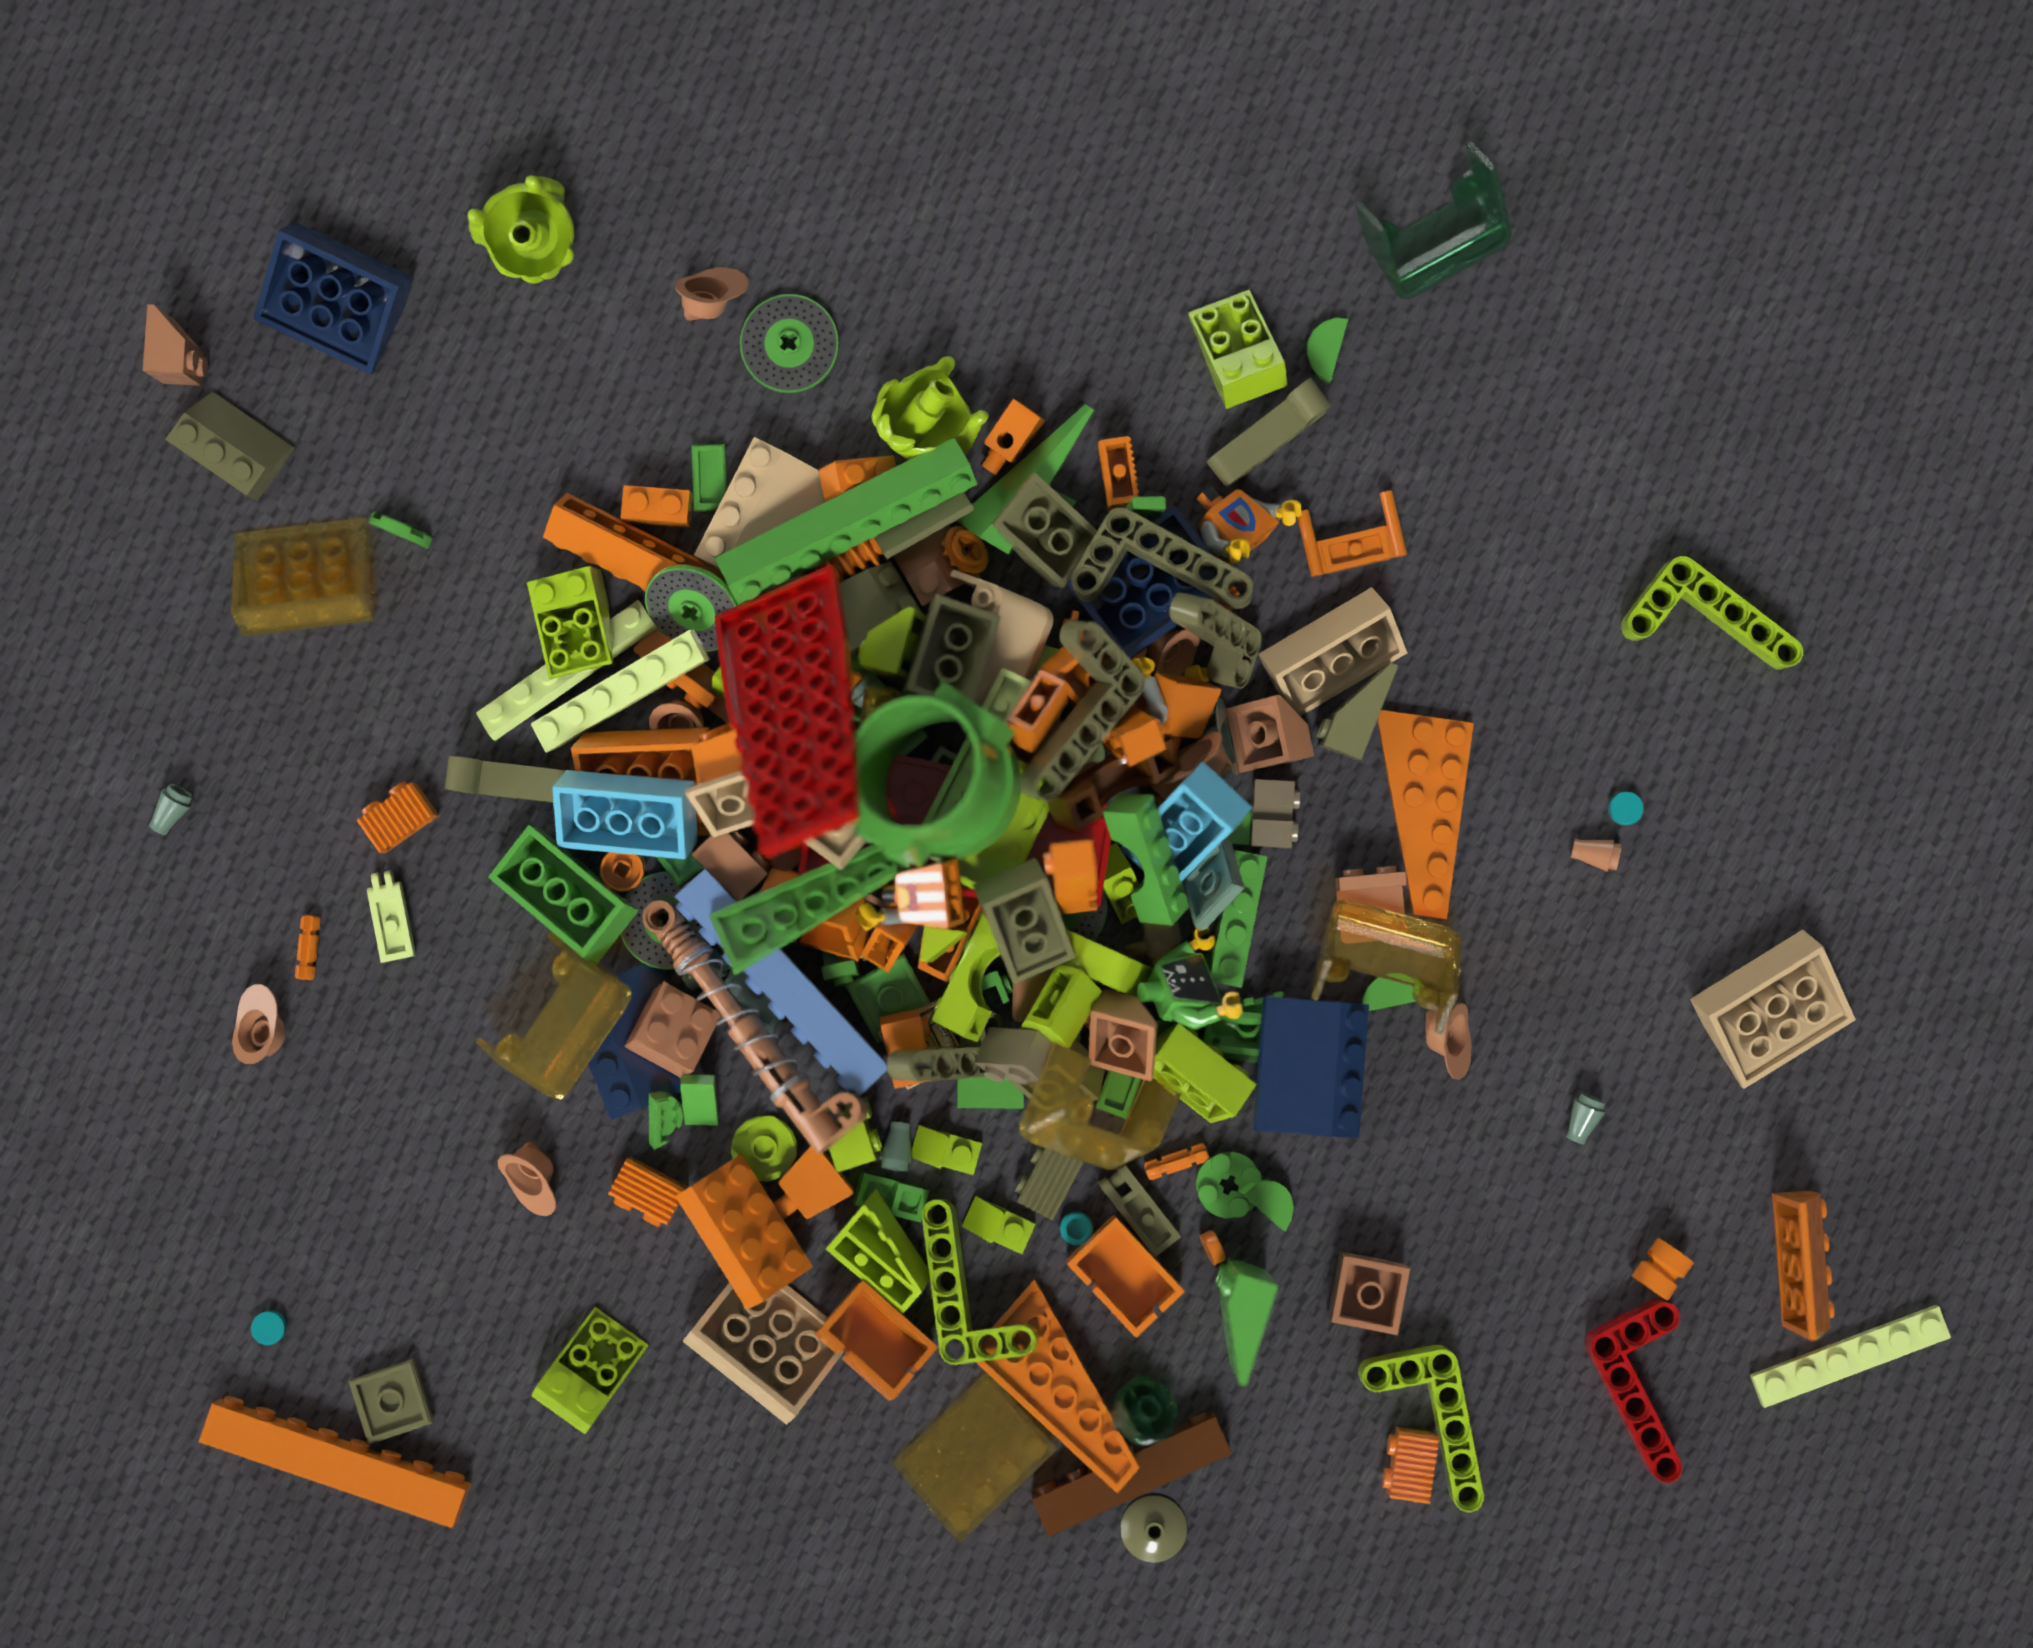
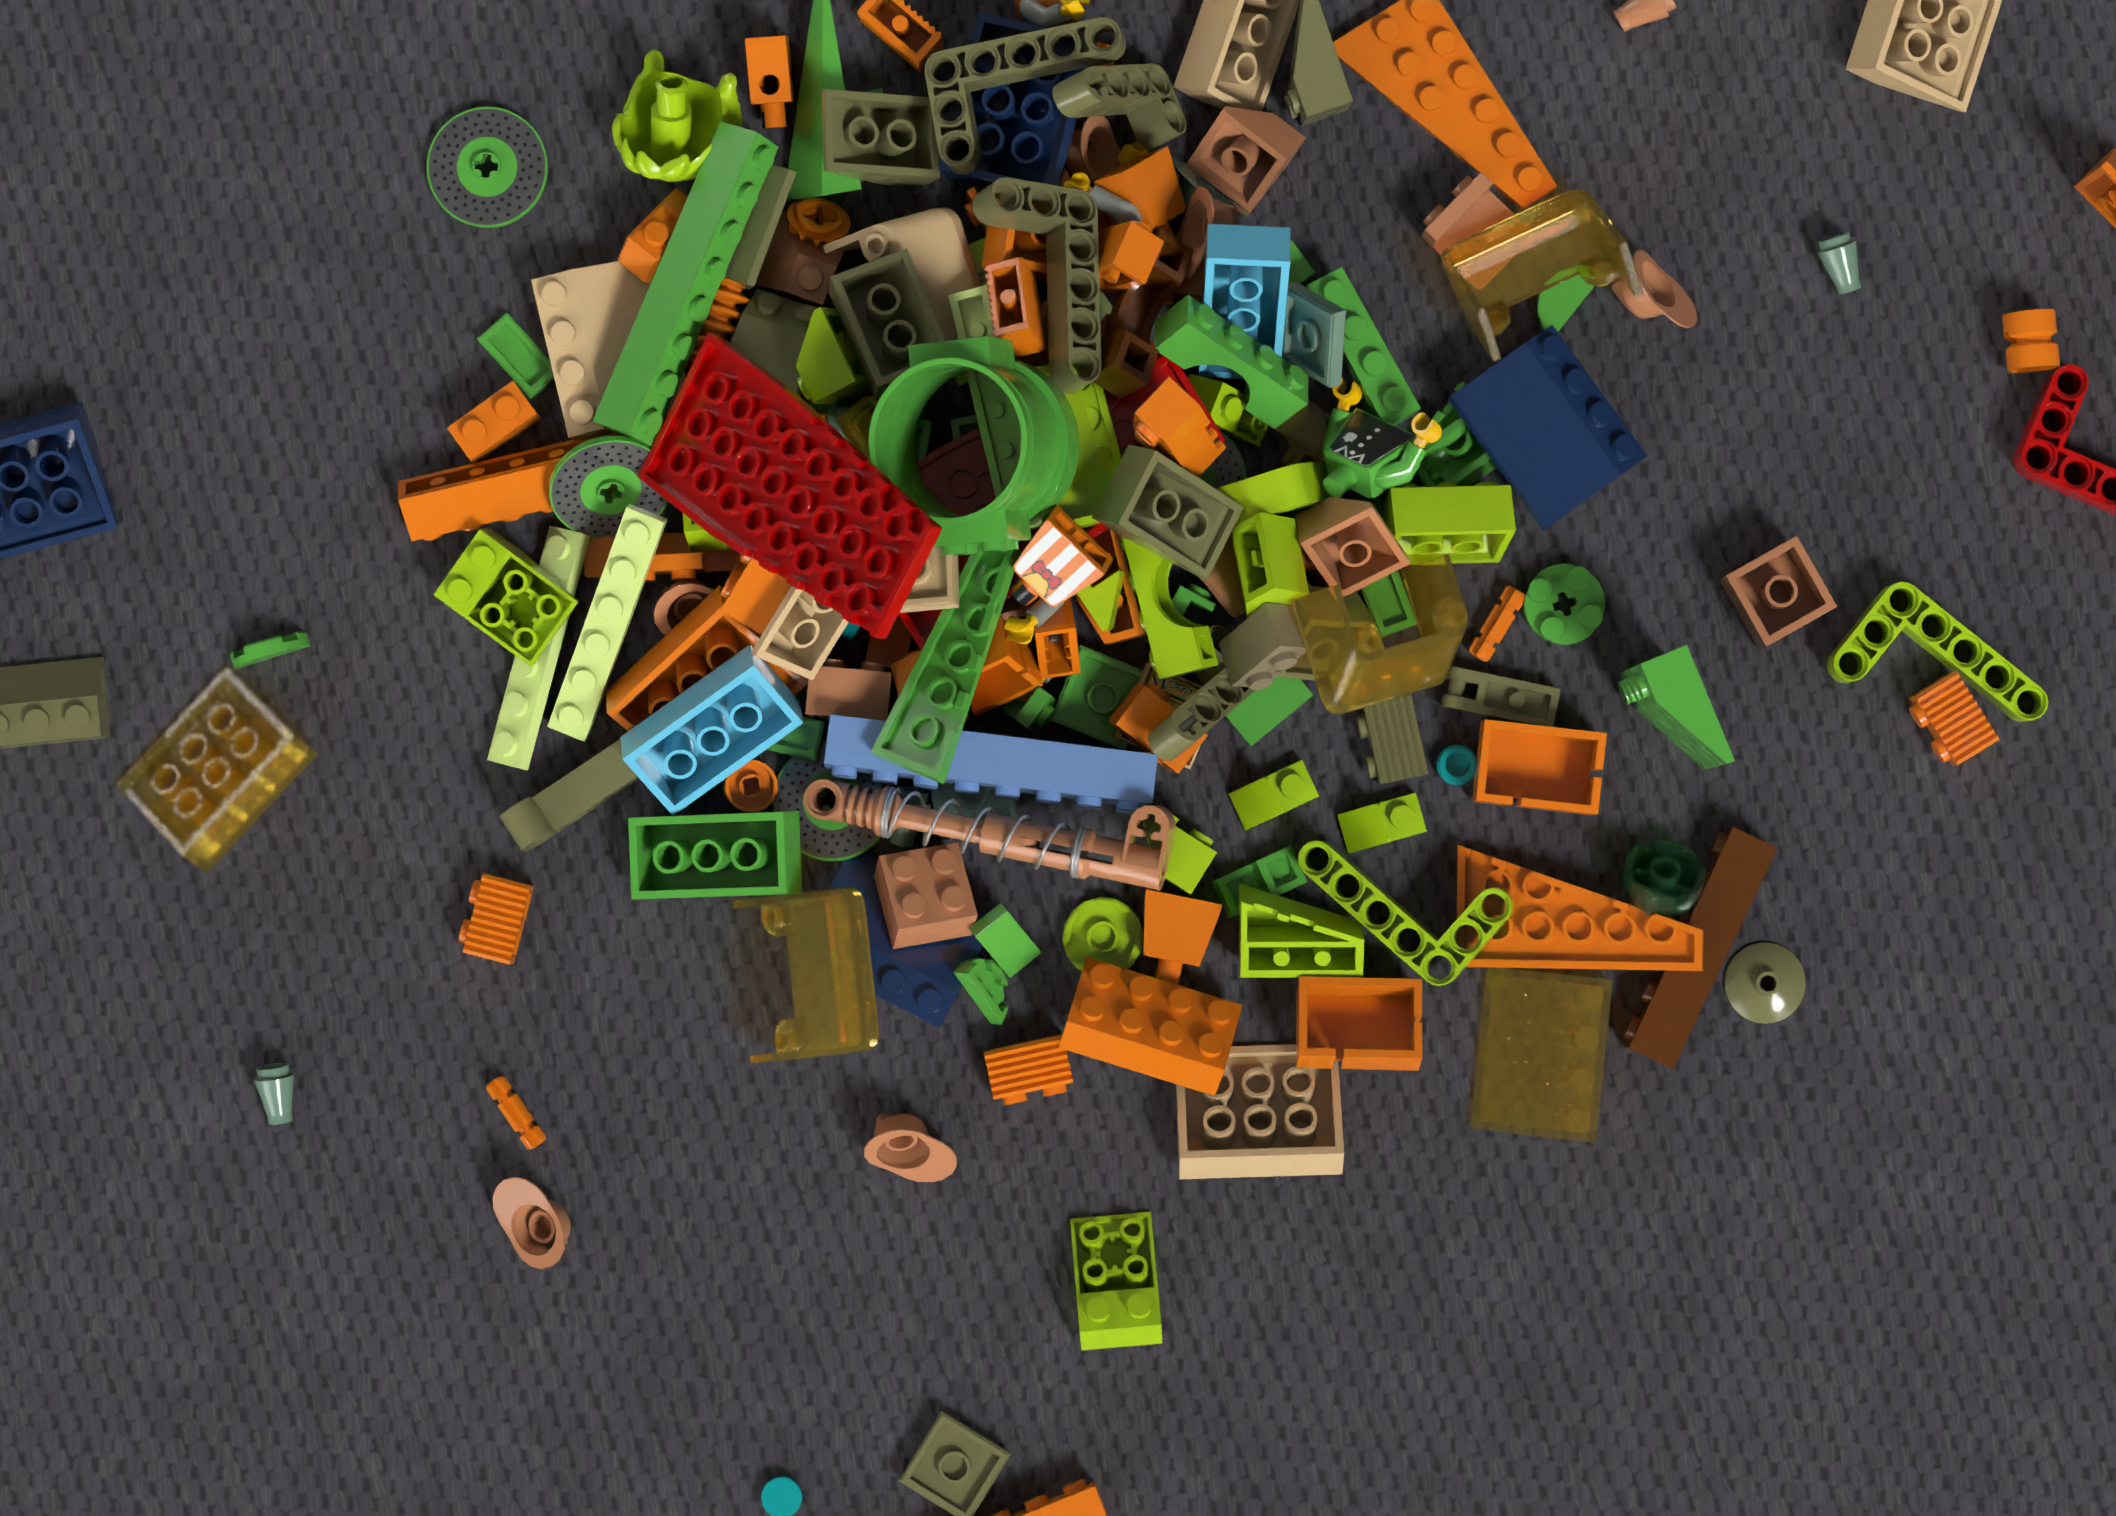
camera: 35 degrees left, 0 degrees up
(390, 918) = (571, 1019): yellowish green hinge -> none
(526, 229) = (152, 266): lime piece -> none
(709, 291) = (372, 180): nougat piece -> none
(897, 1148) = (1227, 831): sand green cone -> none
(1145, 506) = (954, 34): bright green tile -> none
(1212, 1247) = (1598, 674): orange tile -> none
(1271, 1200) = (1617, 584): bright green tile -> none
(1272, 814) = (1313, 224): dark tan brick -> none

